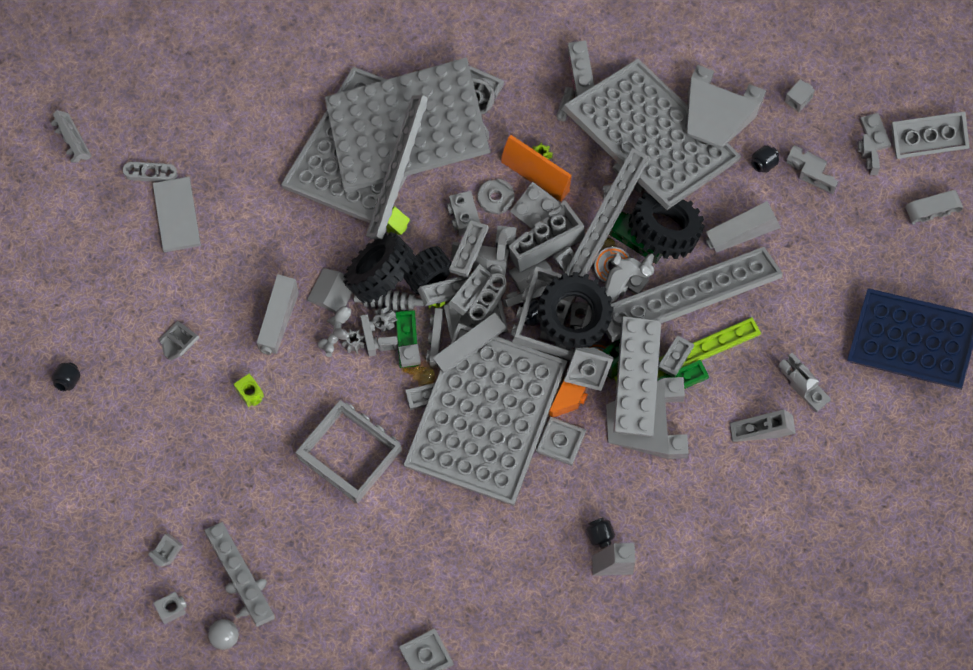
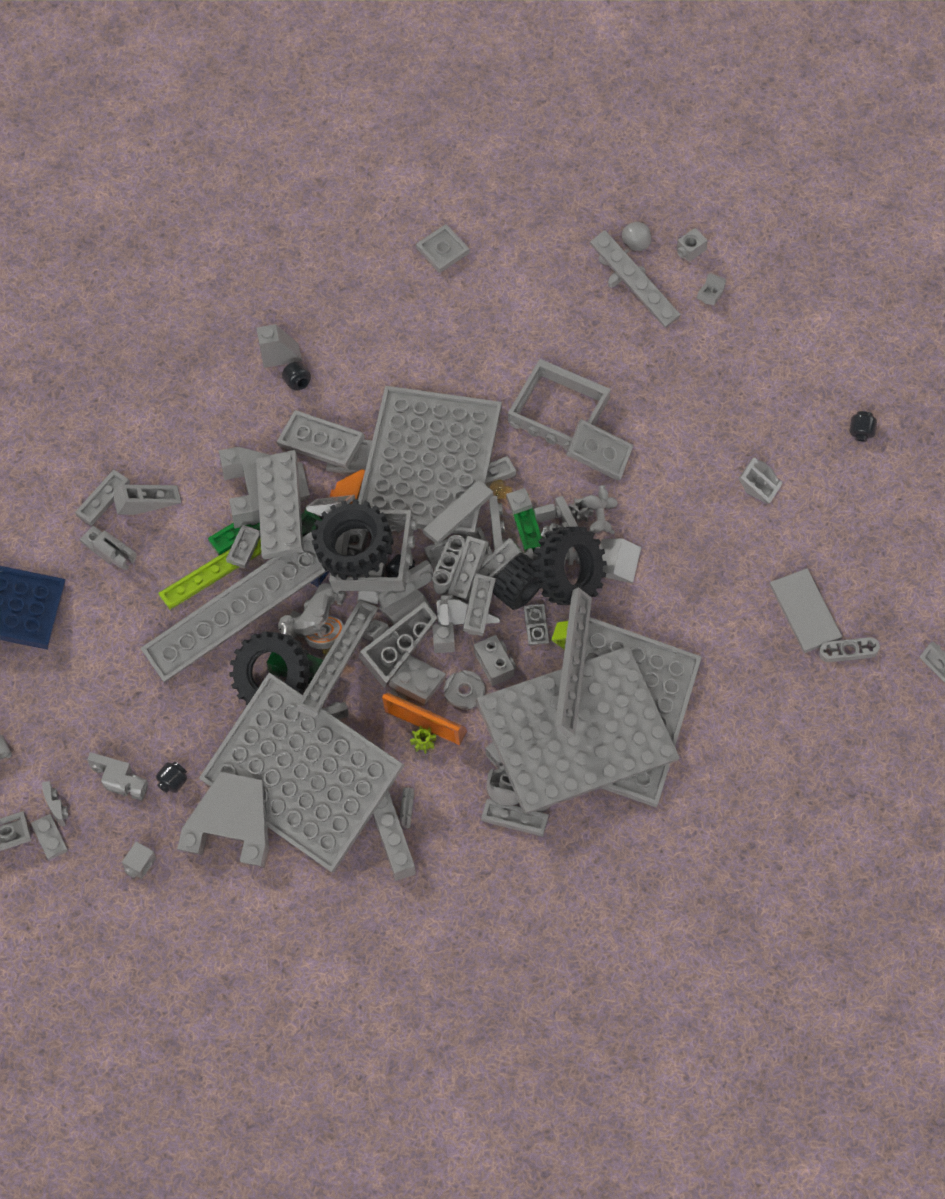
camera: 170 degrees right, 5 degrees down
(246, 384) = (677, 451): lime brick -> none
(277, 314) = (665, 518): light grey slope -> none
(321, 394) = (599, 450): none -> light grey tile
(420, 238) = (536, 624): none -> light grey slope
(587, 455) = (320, 439): none -> light grey plate
(743, 228) = (185, 693): light grey slope -> none
(806, 437) = (101, 498): none -> light grey plate

